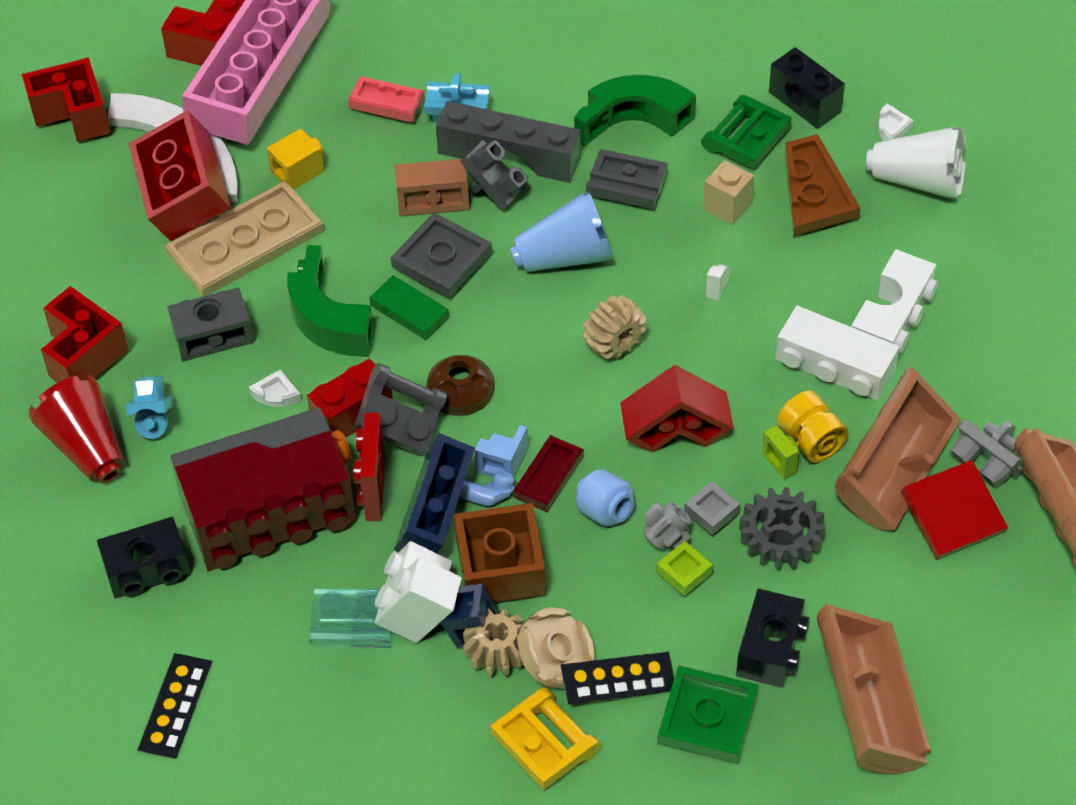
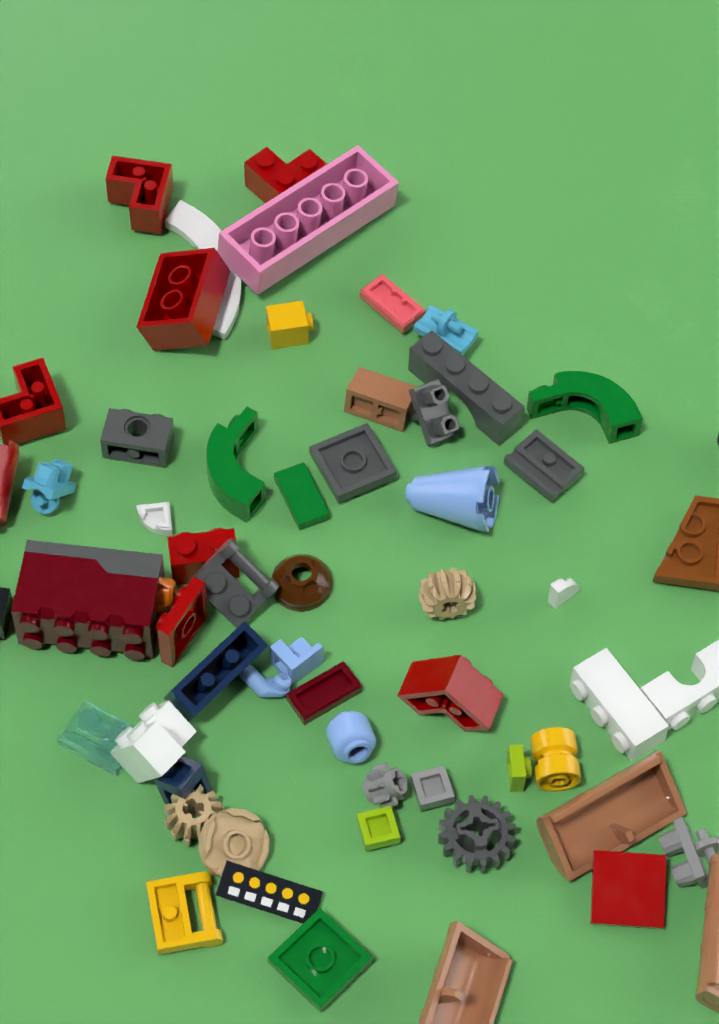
camera: 25 degrees right, 5 degrees up
(244, 238) = (210, 374): tan tile -> none
(501, 551) = (238, 743): dark orange brick -> none
(728, 192) = (618, 518): tan brick -> none
(753, 138) = (673, 477): green plate -> none
(766, 659) = (415, 903): black brick -> none

